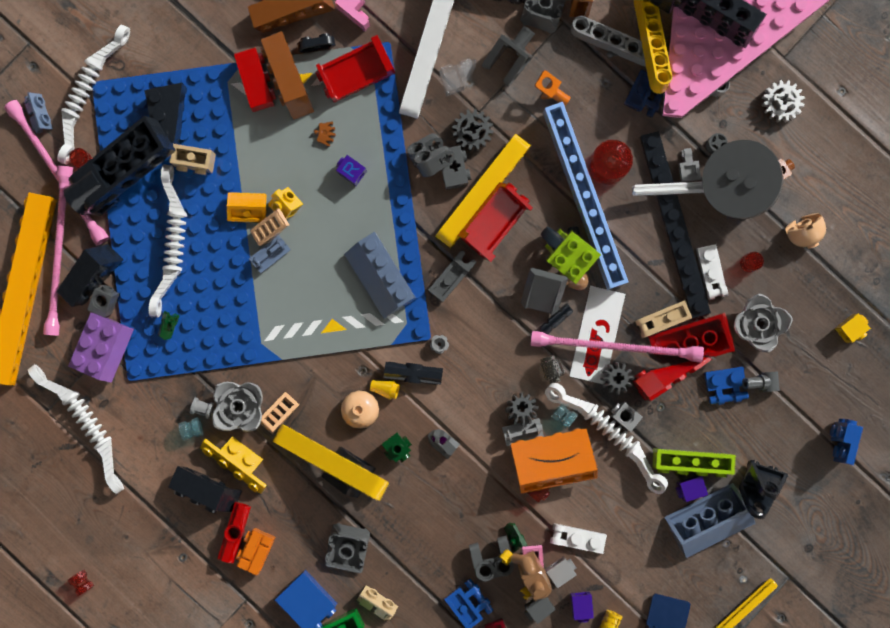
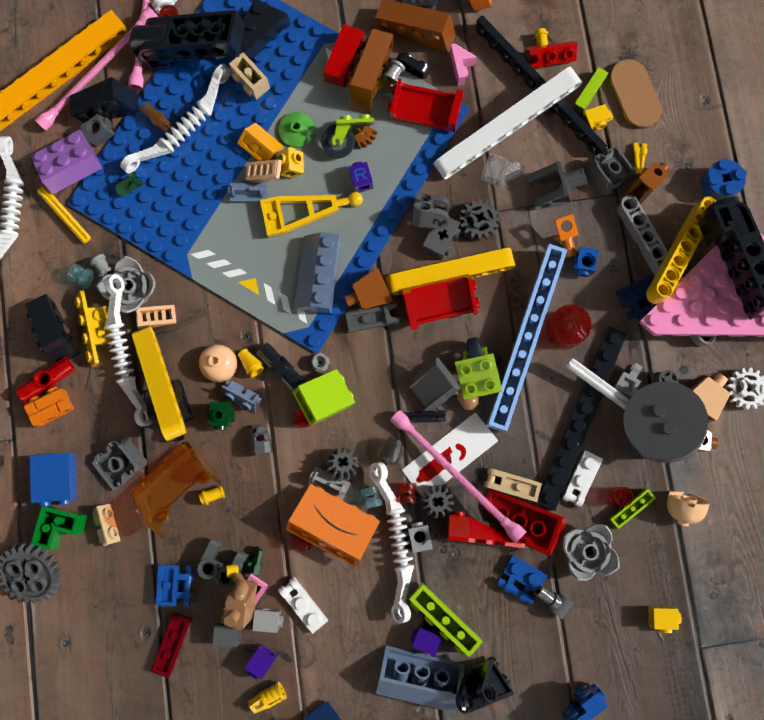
camera: 45 degrees right, 5 degrees down
(133, 391) = (64, 215): none -> yellow axle
(144, 252) = (156, 117): none -> clear orange pin
(252, 446) = (114, 324): none -> white piece
(267, 180) = (301, 136): none -> bright green dish
(306, 62) = (393, 72): none -> light grey bush
(308, 258) = (274, 219): none -> yellow plate
(309, 154) = (338, 138): none -> plate
(398, 532) = (168, 483): none -> clear orange windscreen
(408, 420) = (233, 393): none -> sand blue hinge
(433, 257) = (369, 291): none -> dark orange torso
(440, 514) = (211, 495): none -> yellow pin
(463, 398) = (301, 420): none -> red wheel
(466, 369) = (323, 397): none -> lime brick
(582, 90) = (591, 256): none -> blue brick
(586, 386) = (406, 488): none -> clear red wheel
(759, 128) = (712, 395): none -> light nougat torso
(765, 272) = (626, 513): none -> lime piece

